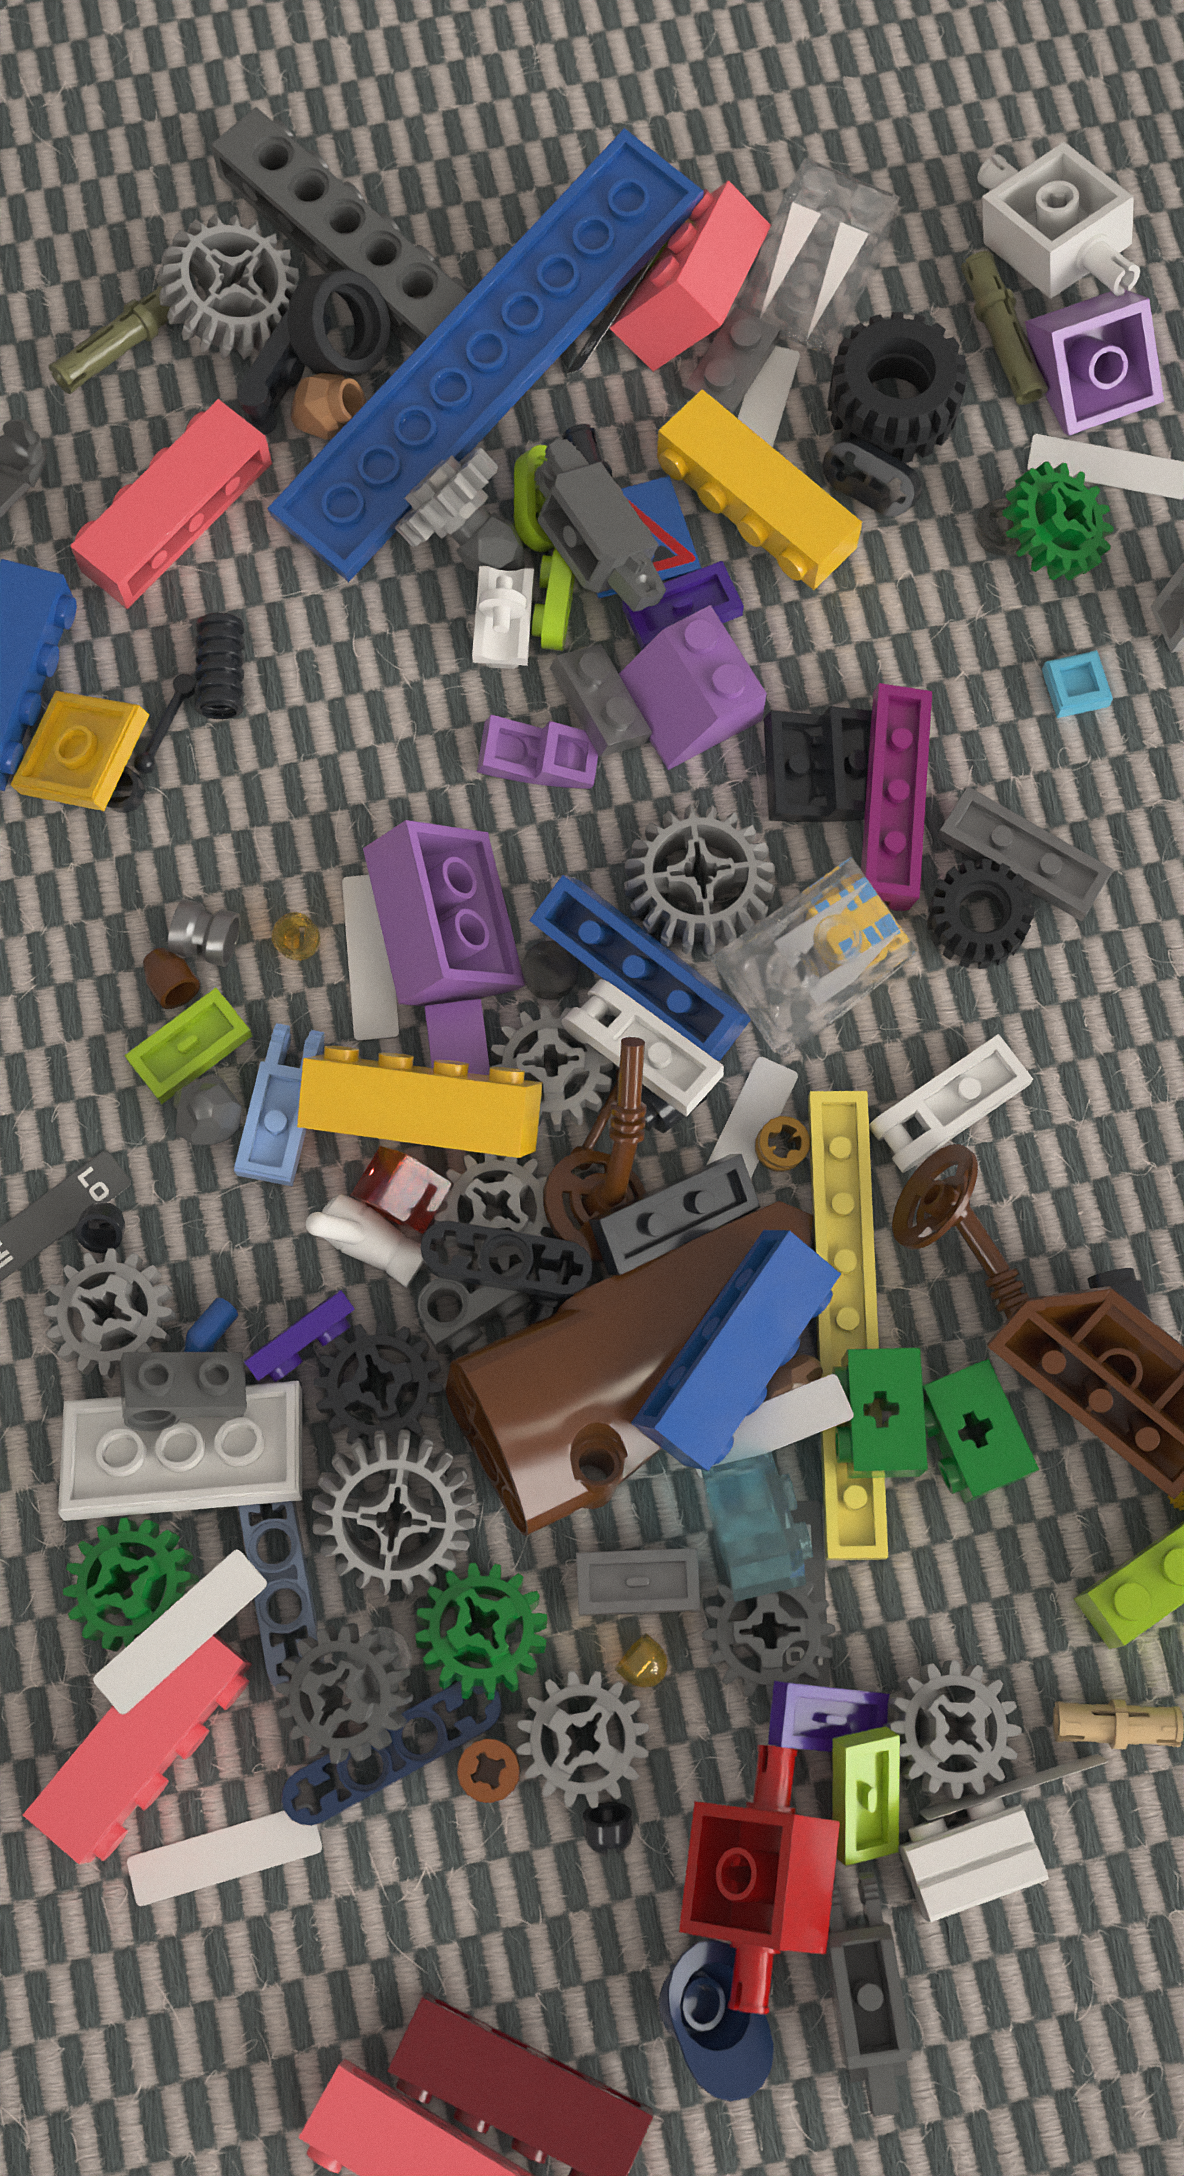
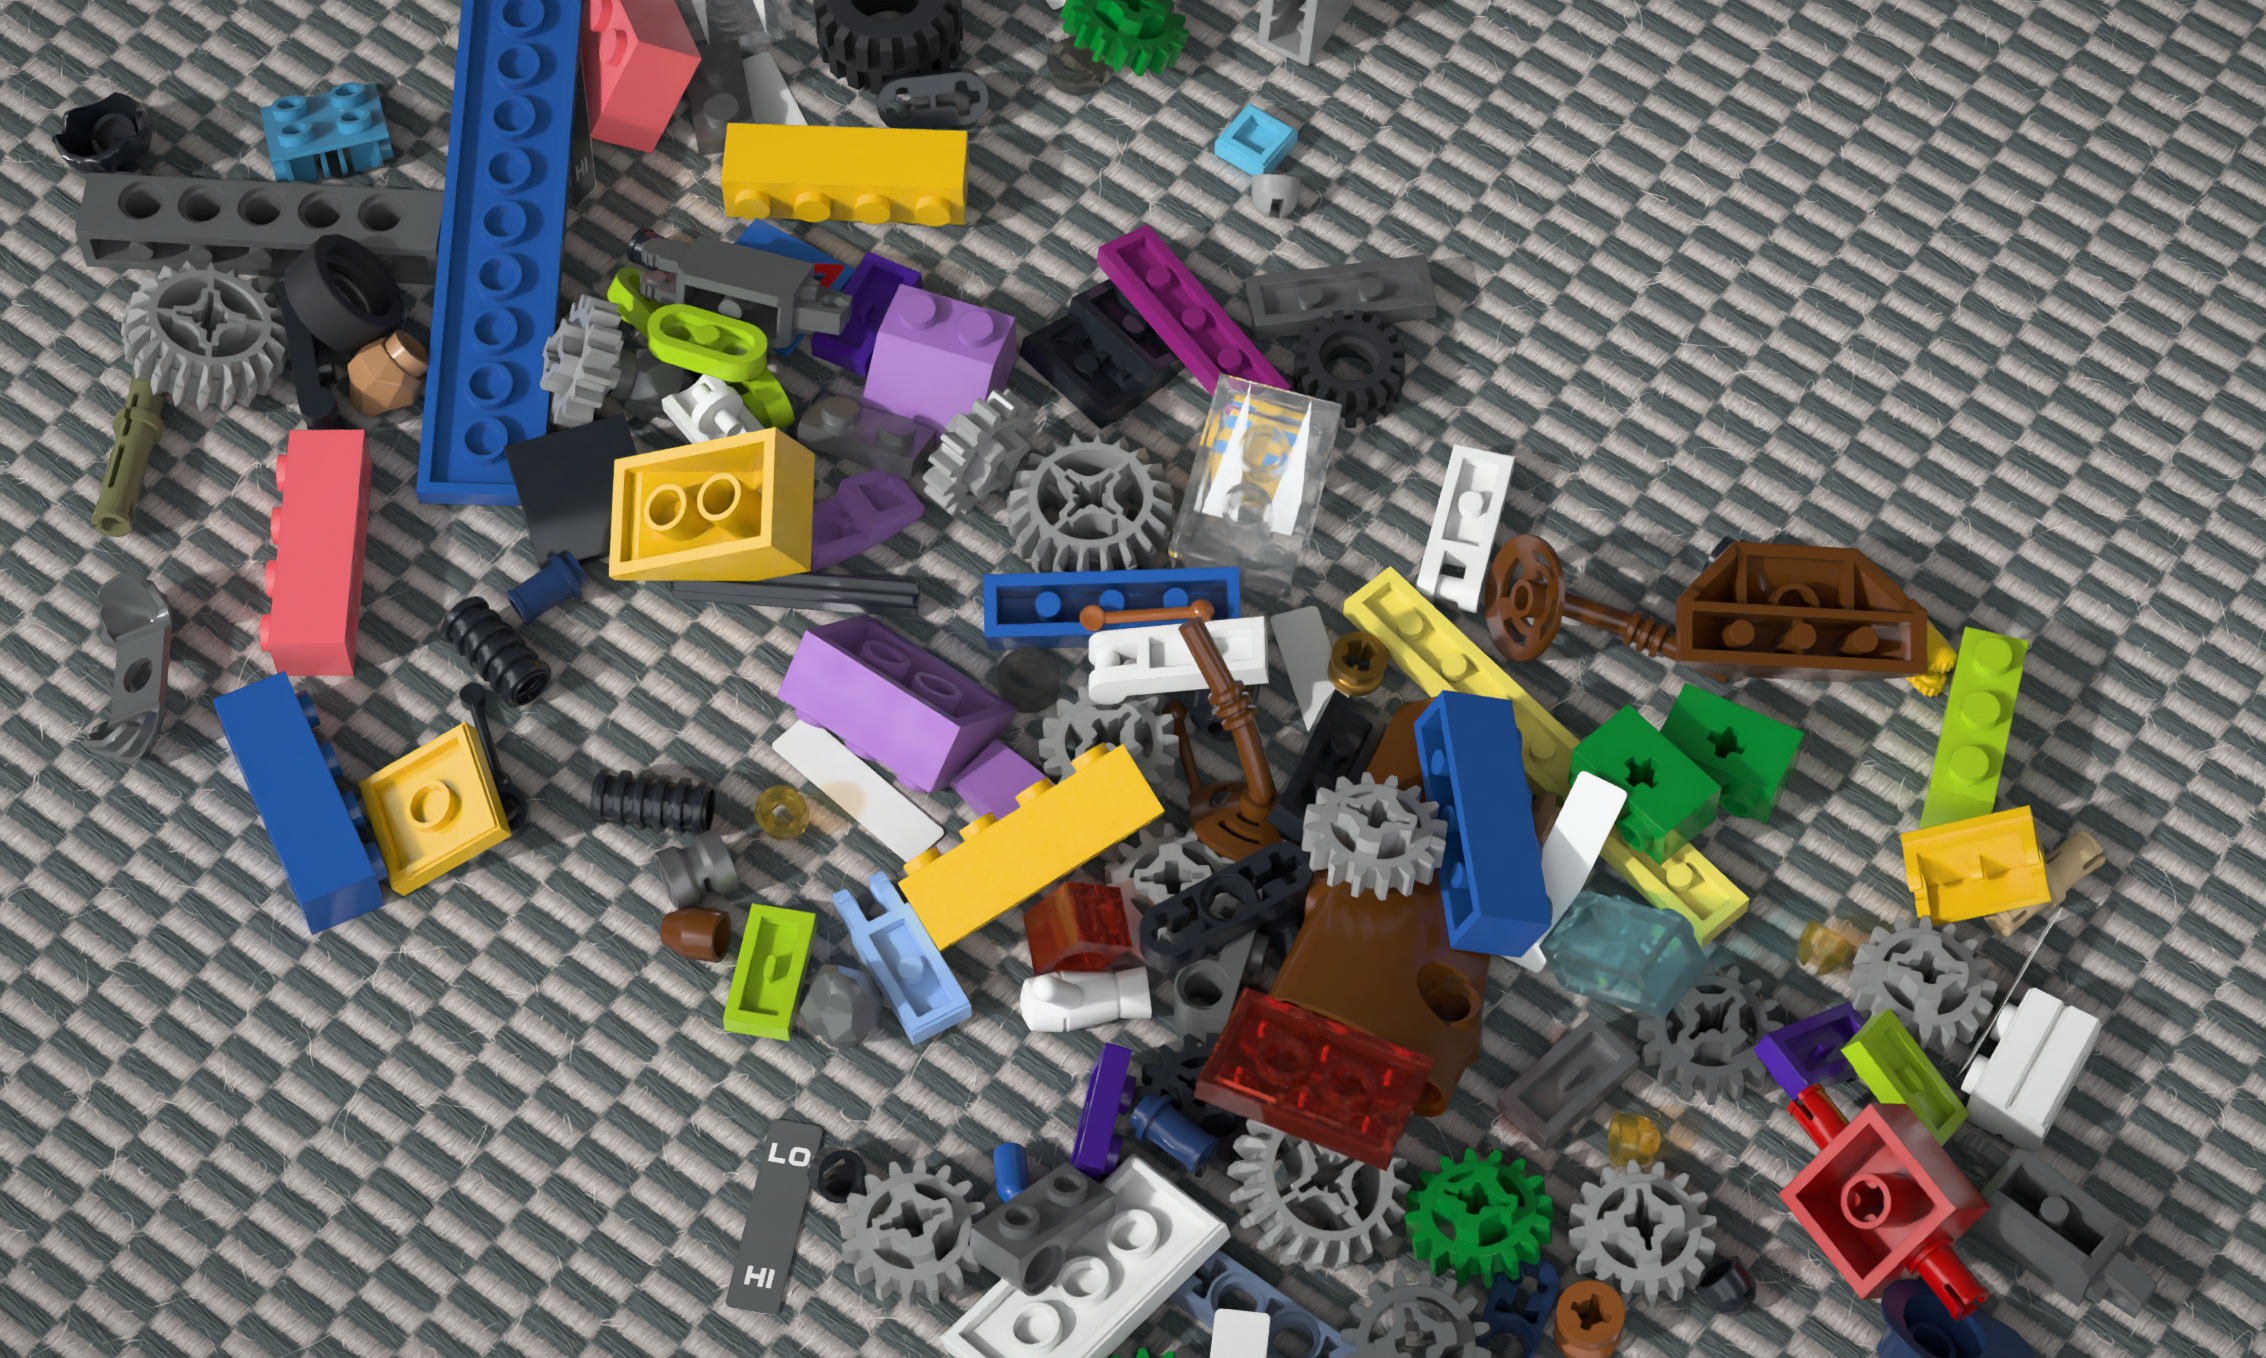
camera: 40 degrees left, 15 degrees down
(222, 859) = (652, 802): none -> black piece
(294, 88) = (105, 136): none -> black hair
(297, 646) = (548, 588): none -> dark blue pin
(324, 1394) = (1172, 1131): none -> dark blue pin
(373, 594) = (568, 487): none -> black slope
(430, 1450) = (1314, 1078): none -> clear red plate
(435, 679) = (714, 511): none -> yellow slope
(447, 189) = (322, 123): none -> dark azure hinge
(455, 777) = (811, 592): none -> black axle
(536, 553) = (707, 342): none -> lime plate
(611, 969) = (1094, 618): none -> dark orange hinge
(643, 1273) = (1374, 836): none -> light grey gear
(653, 776) = (980, 452): none -> light grey gear
(914, 1636) = (1827, 945): none -> clear yellow hinge
(1053, 733) = (1275, 189): none -> light grey hinge
(1070, 1679) = (1976, 866): none -> yellow hinge

